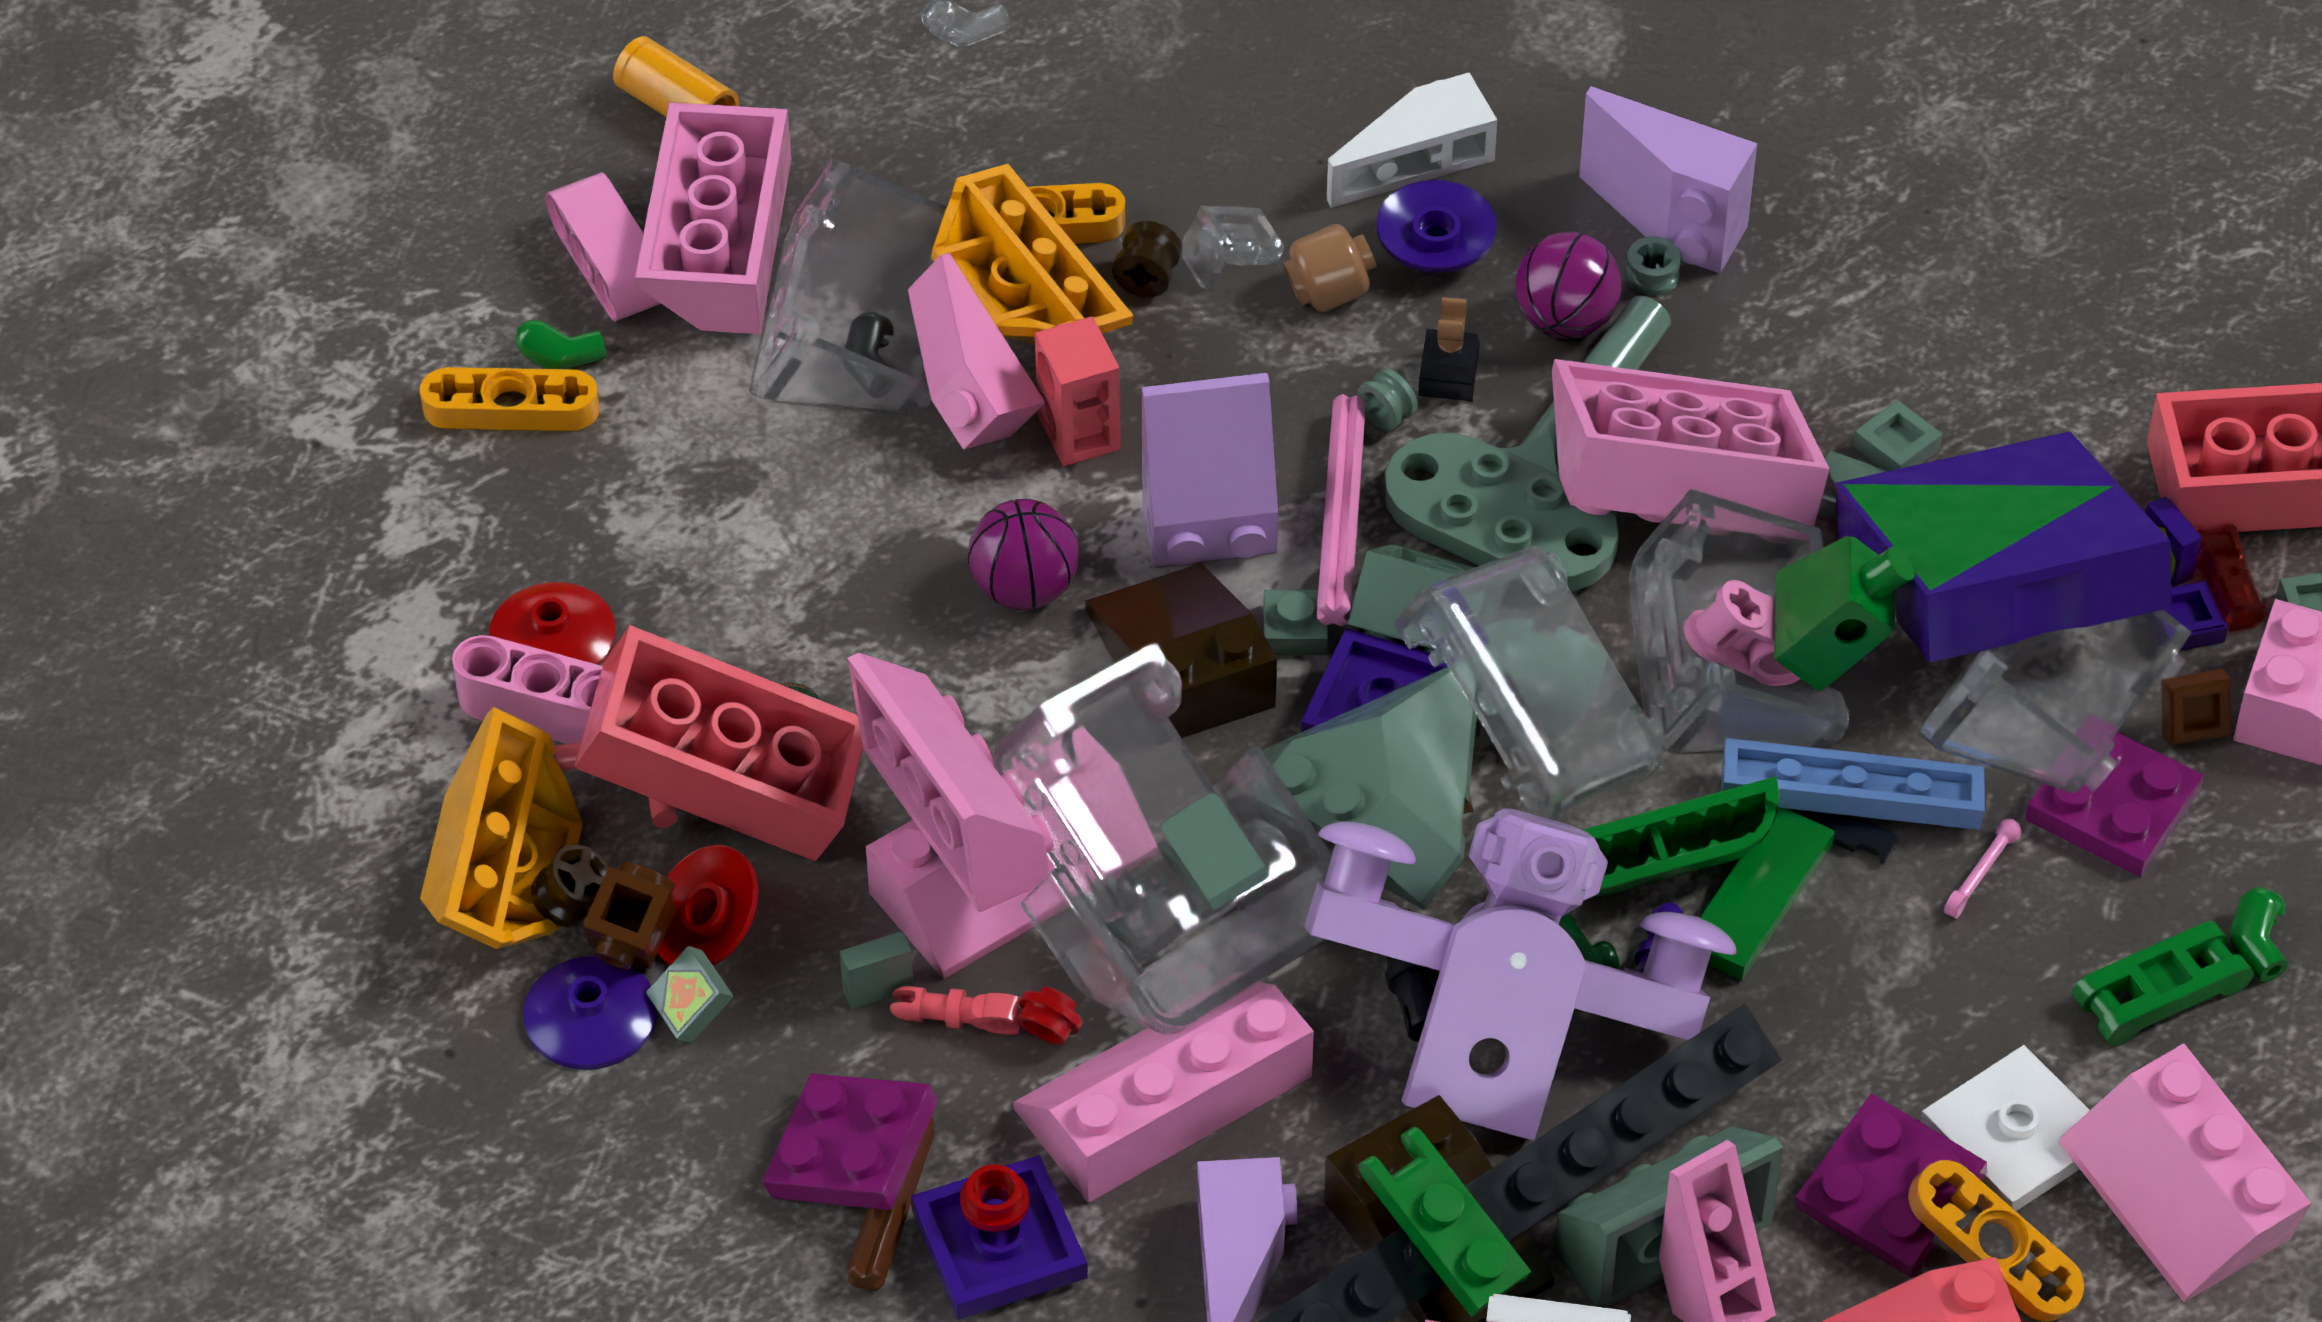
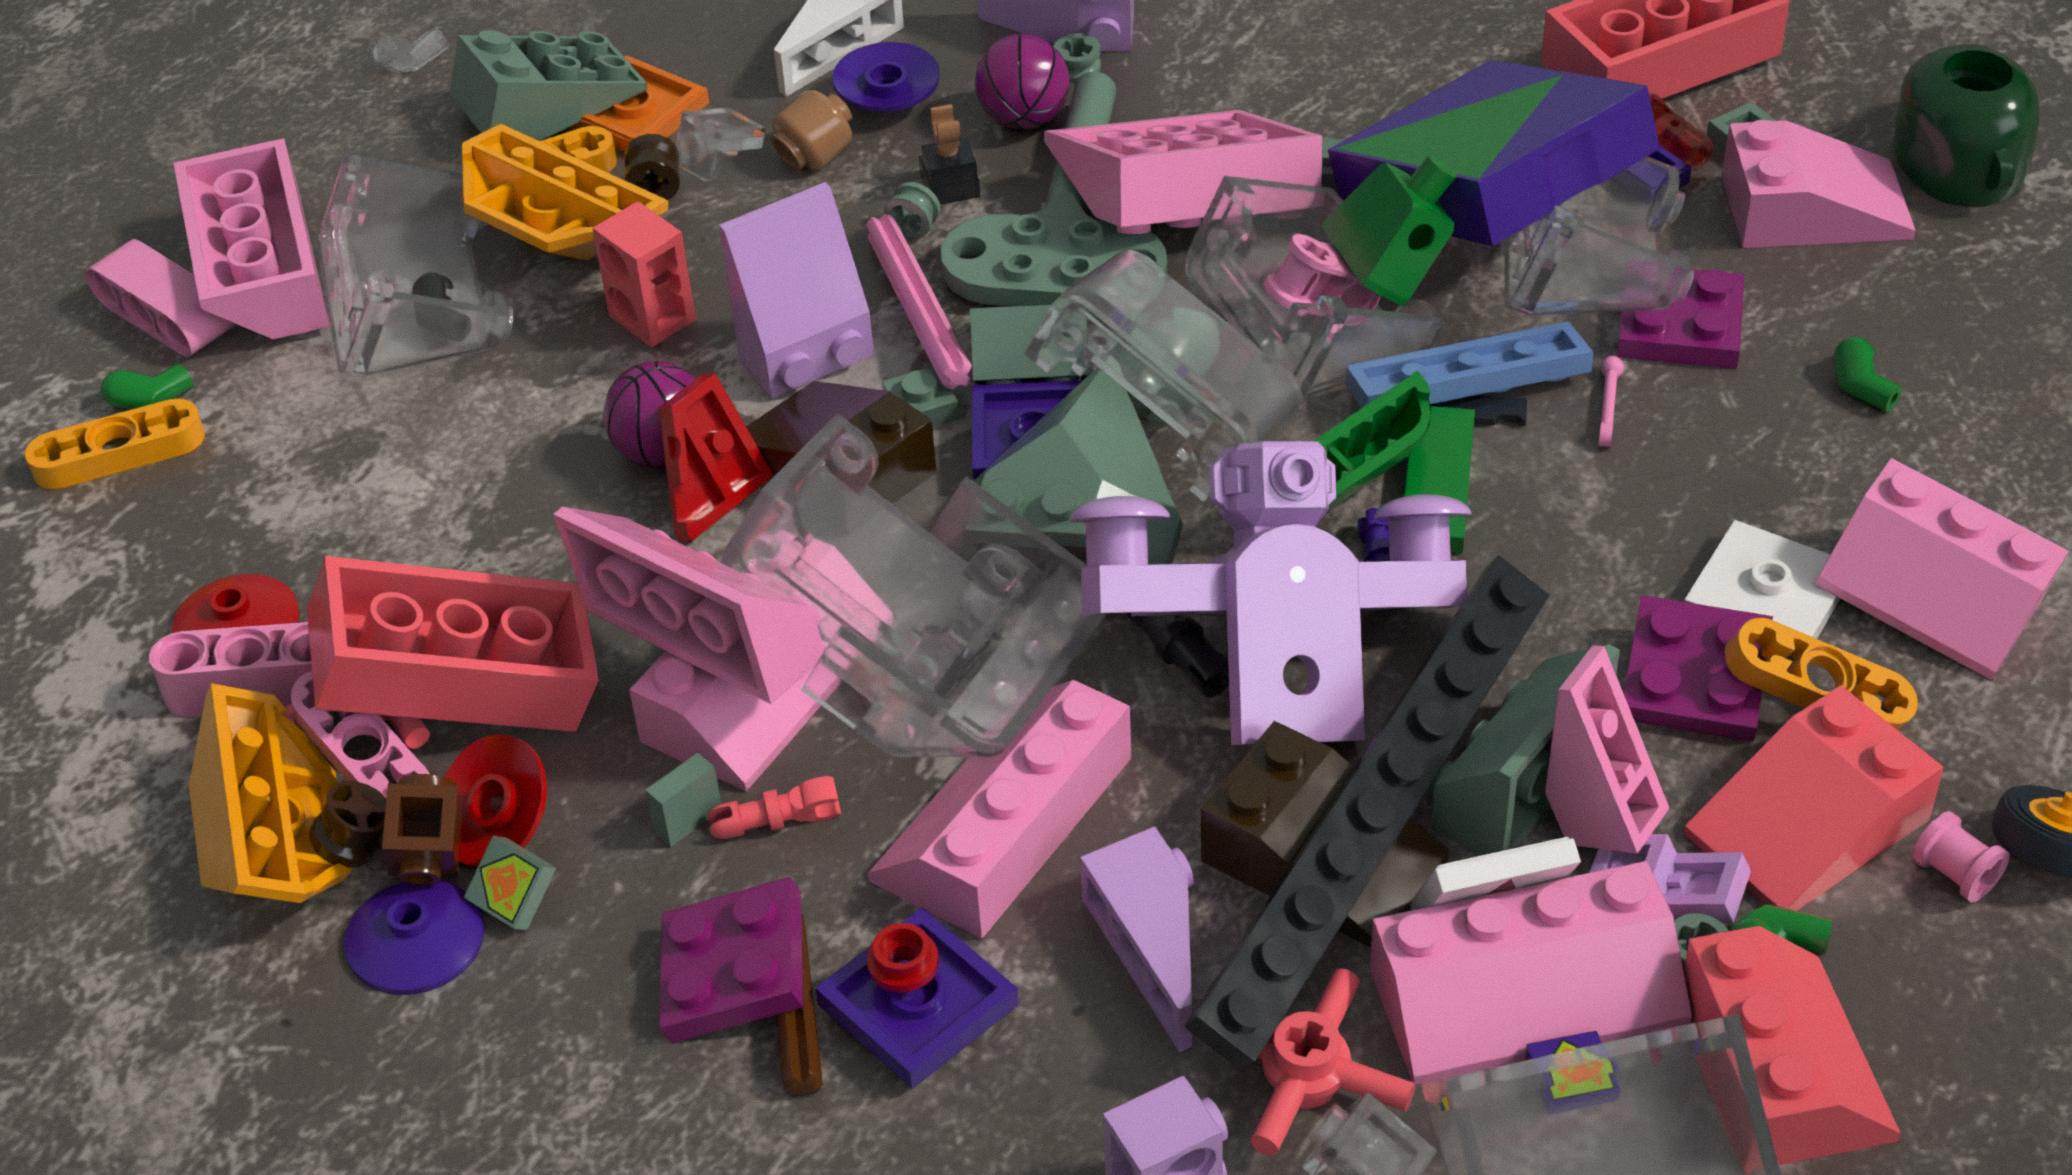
camera: 20 degrees left, 5 degrees down
(642, 847) = (331, 740): none -> bright pink beam
(662, 77) = (148, 158): light orange pin -> none
(967, 360) = (534, 278): bright pink slope -> none
(1049, 1015) = (867, 784): red plate -> none
(1050, 620) = (707, 456): none -> red wing
(1080, 113) = (539, 80): none -> sand green slope
(1168, 167) = (652, 111): none -> orange tile
(1210, 852) = (965, 580): sand green slope -> none
(1446, 1224) = (1352, 822): green hinge -> none
(1897, 438) = (1347, 113): sand green plate -> none
(2162, 981) = (1813, 432): green plate -> none
(2196, 707) = (1708, 226): reddish brown tile -> none

